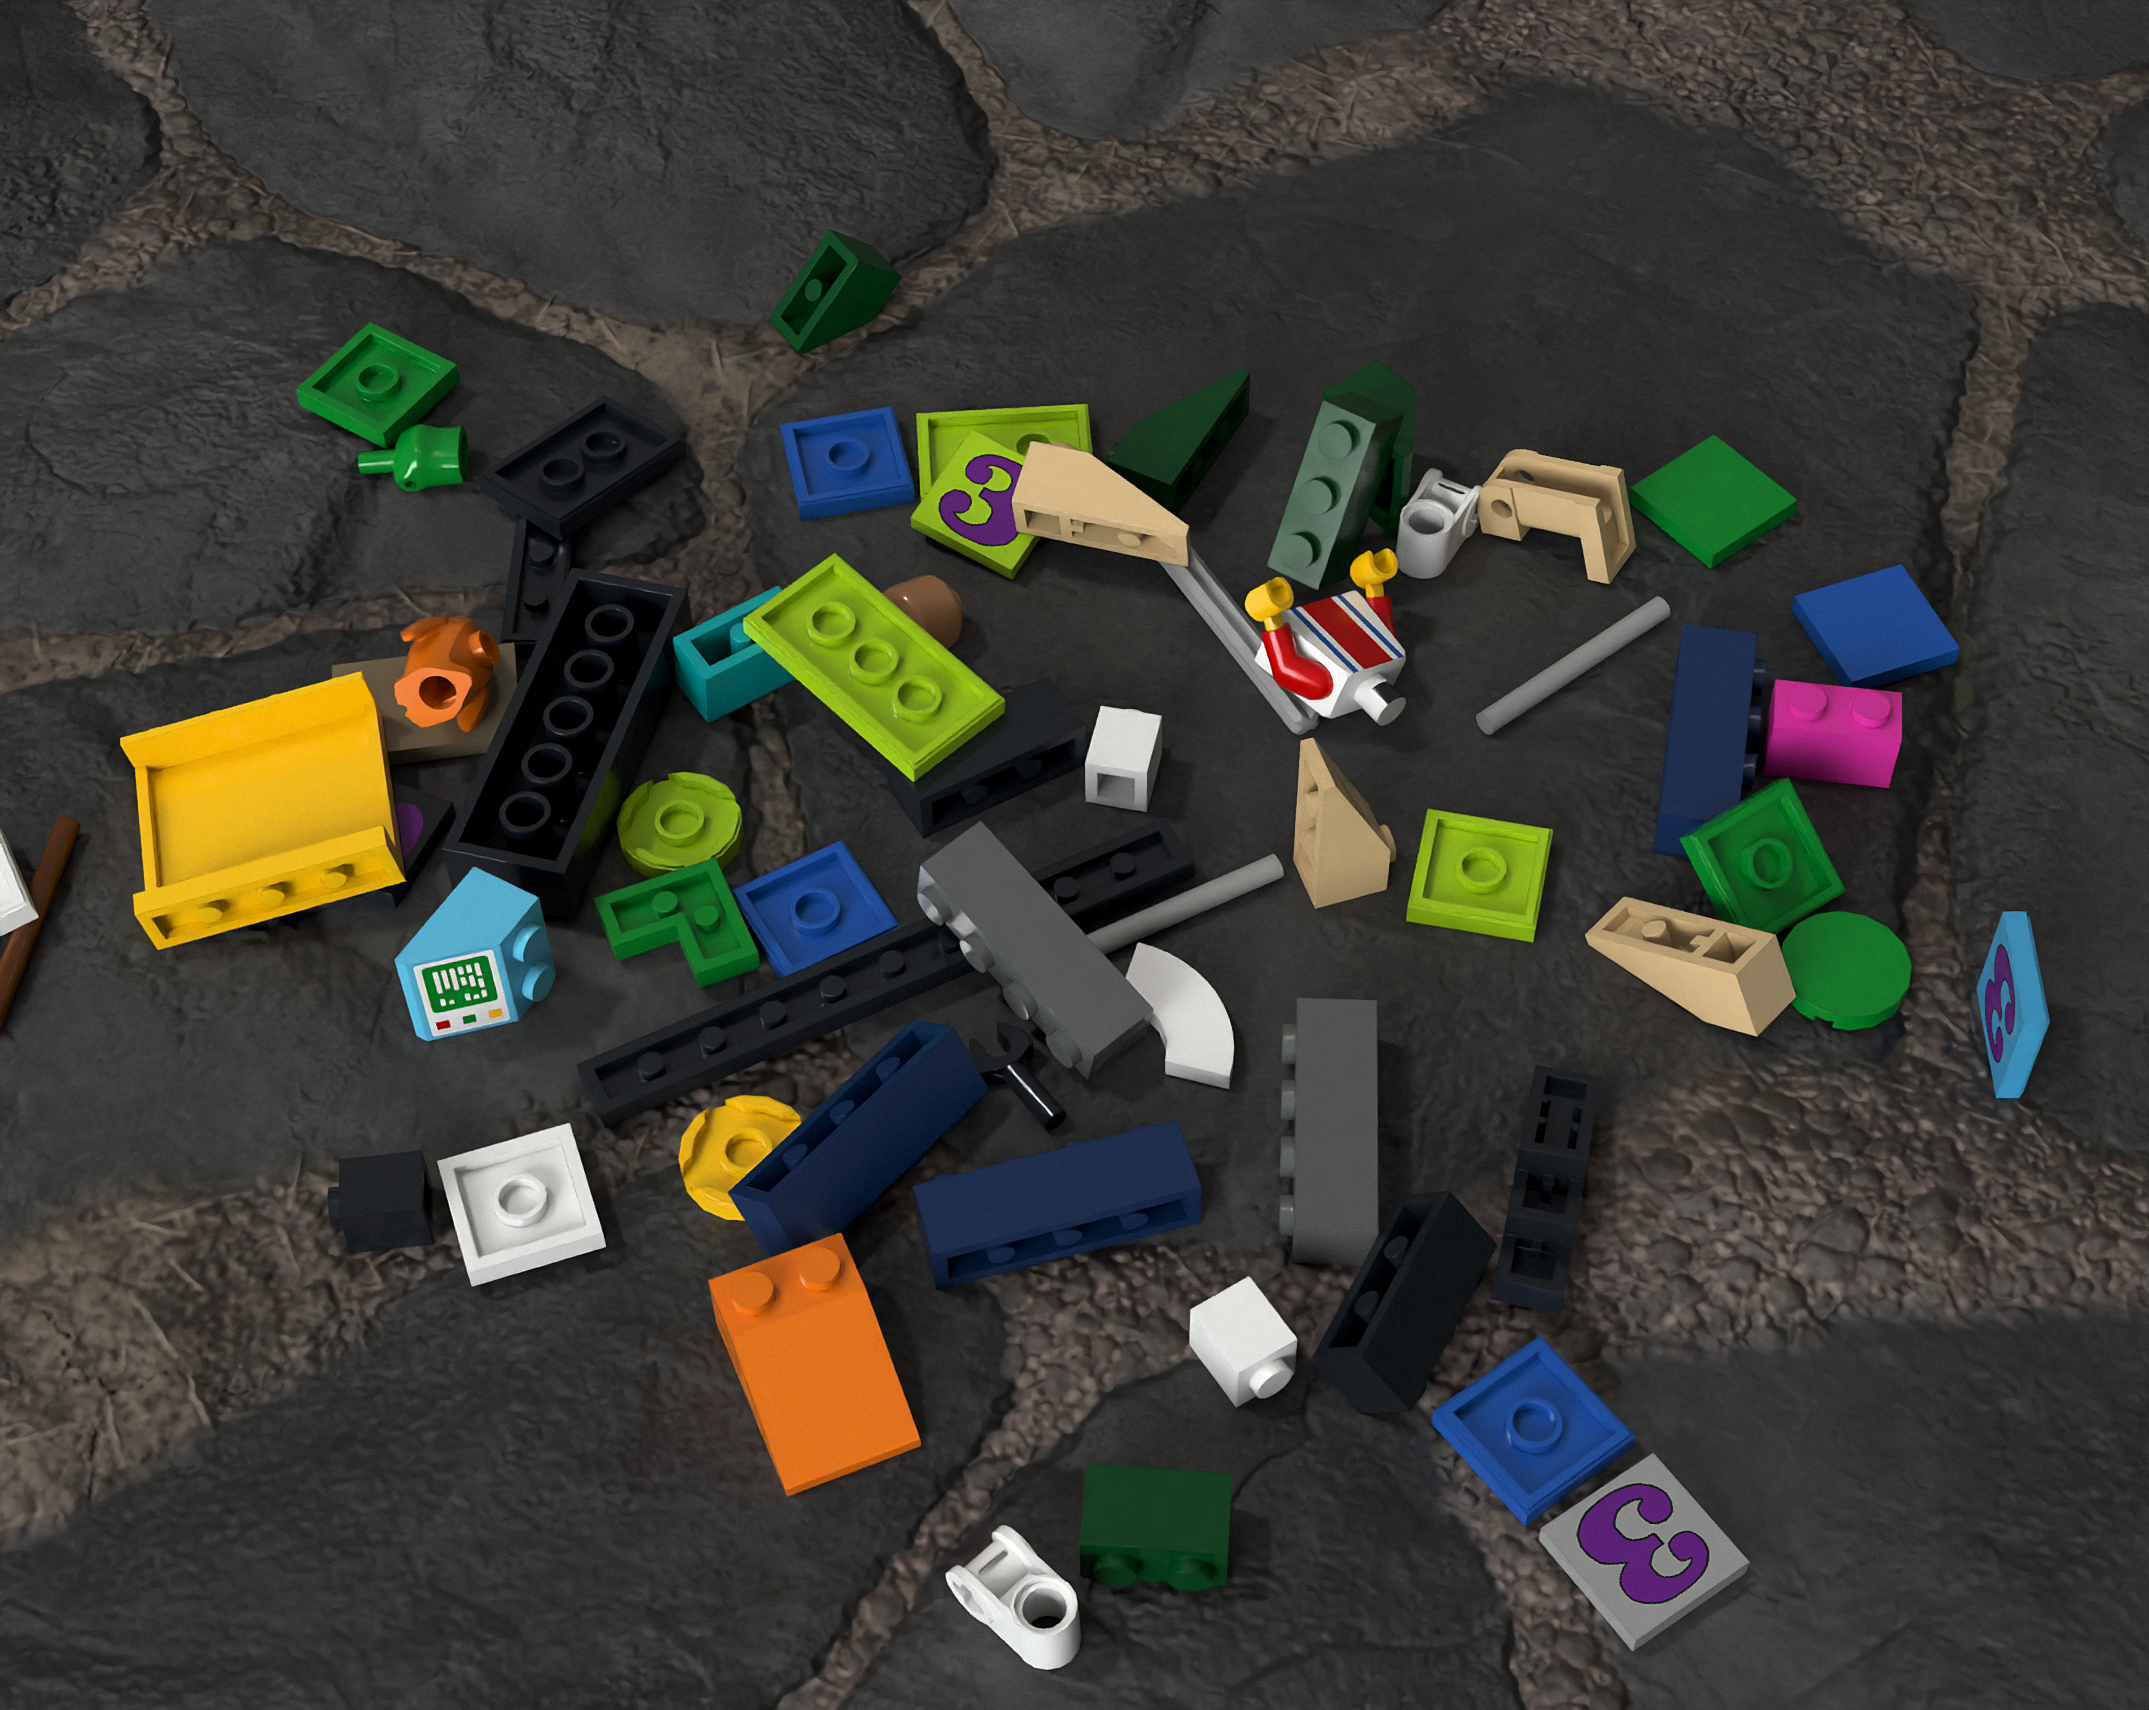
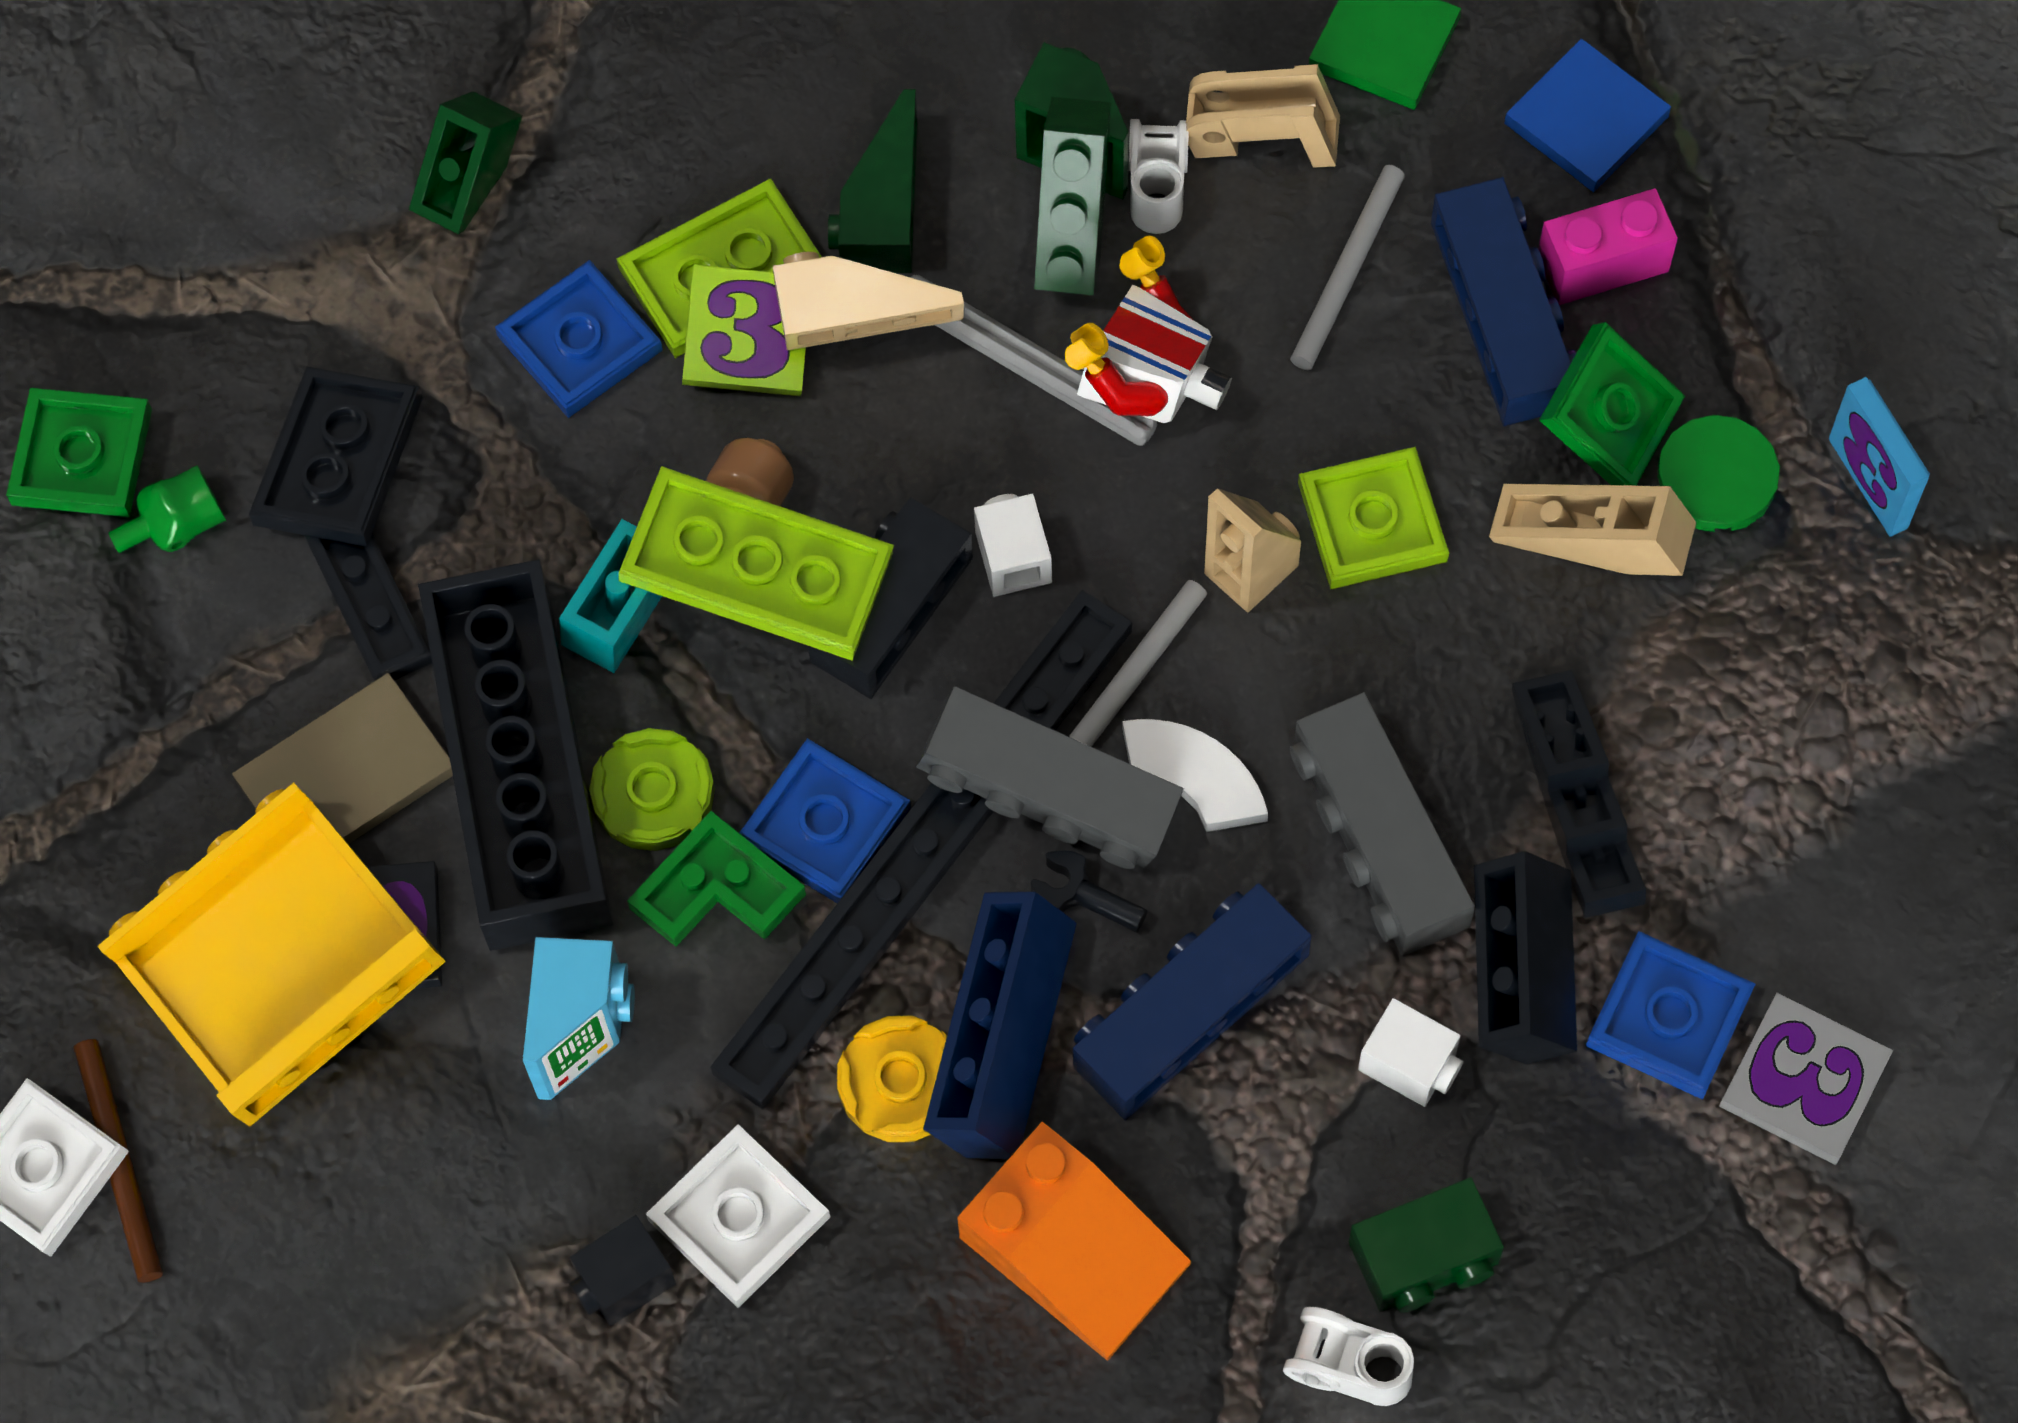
camera: 25 degrees left, 15 degrees up
(447, 671) = (365, 740): orange animal -> none

